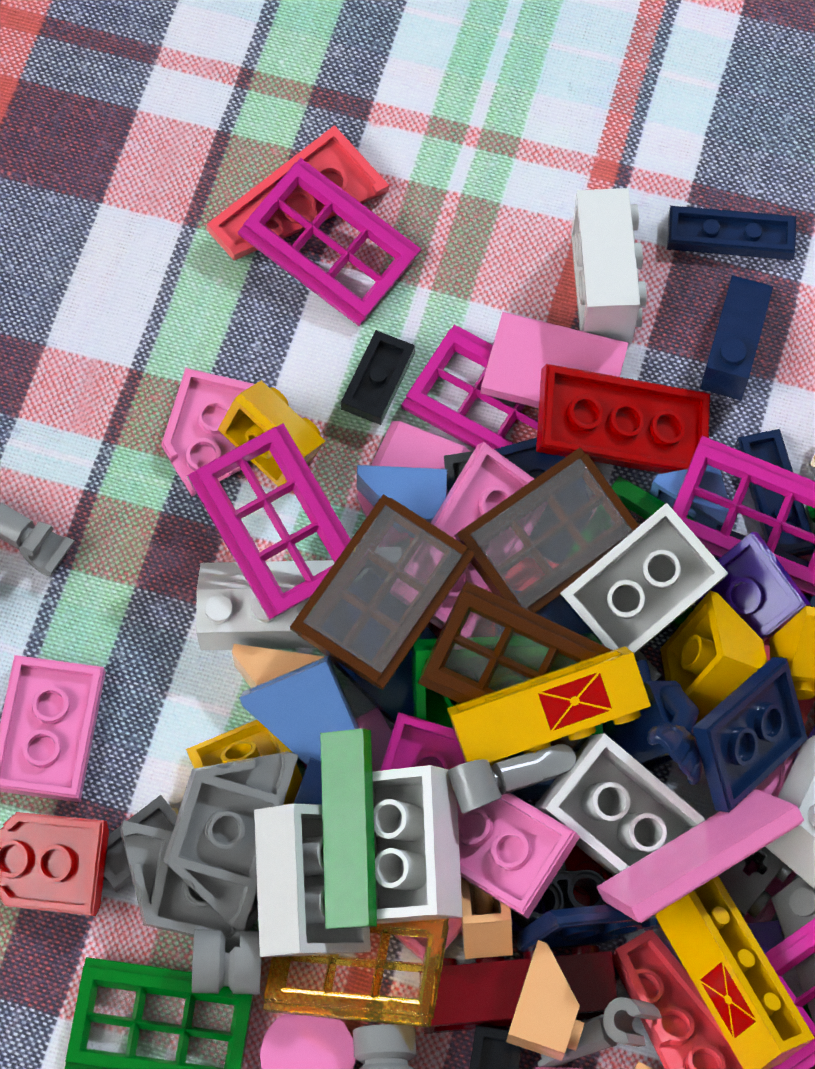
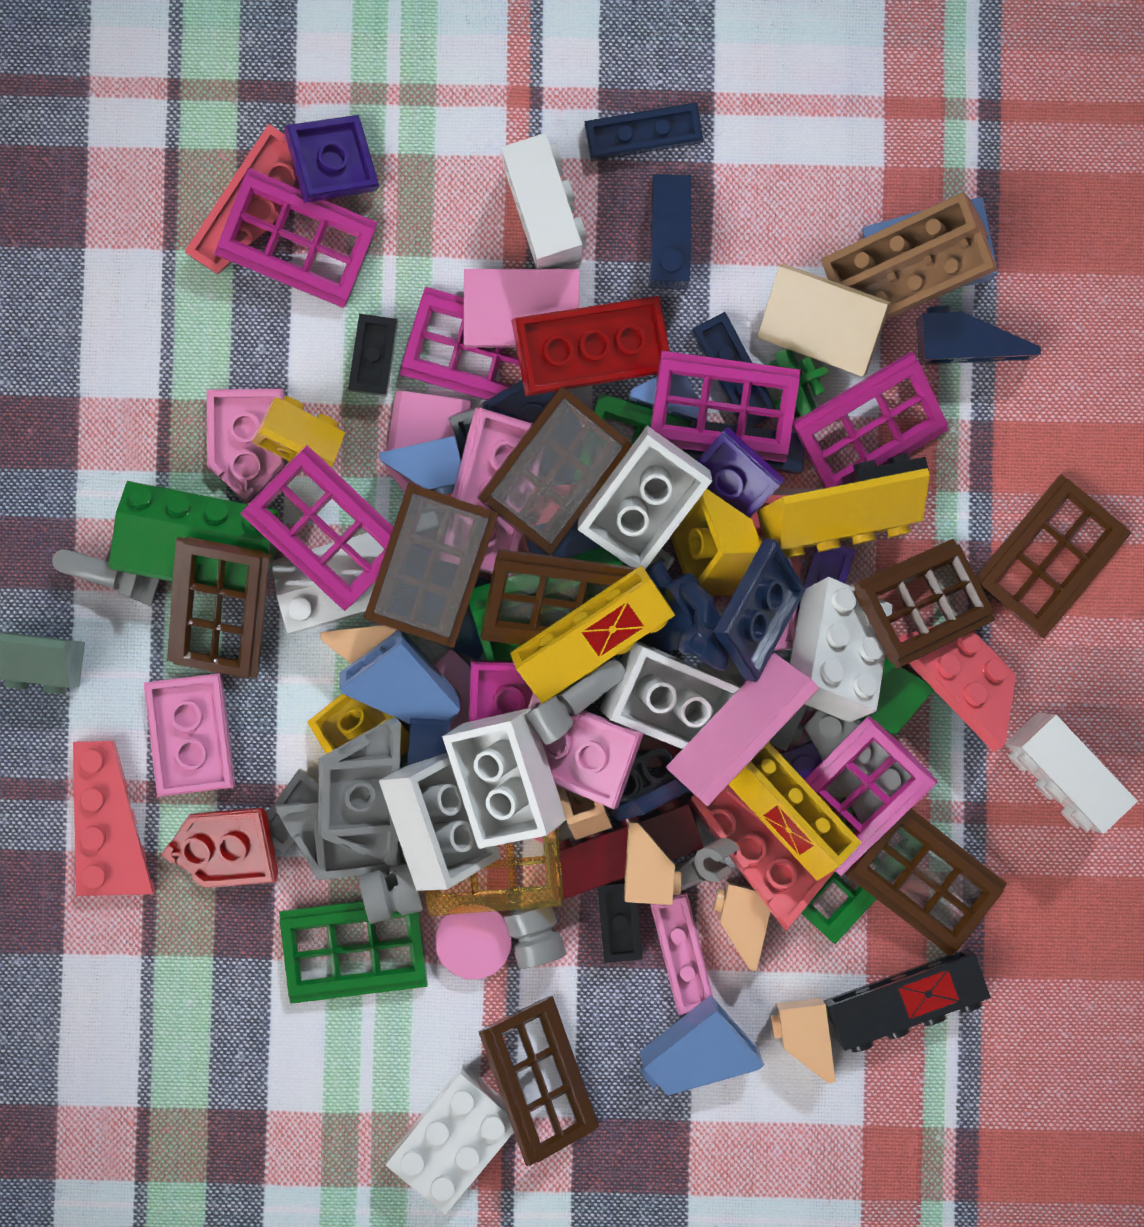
camera: 20 degrees left, 20 degrees up
(121, 510) = (154, 517): none -> green slope
(165, 600) = (182, 607): none -> reddish brown piece
(348, 829) = (458, 781): tile -> none
(390, 174) = (331, 158): none -> dark purple tile

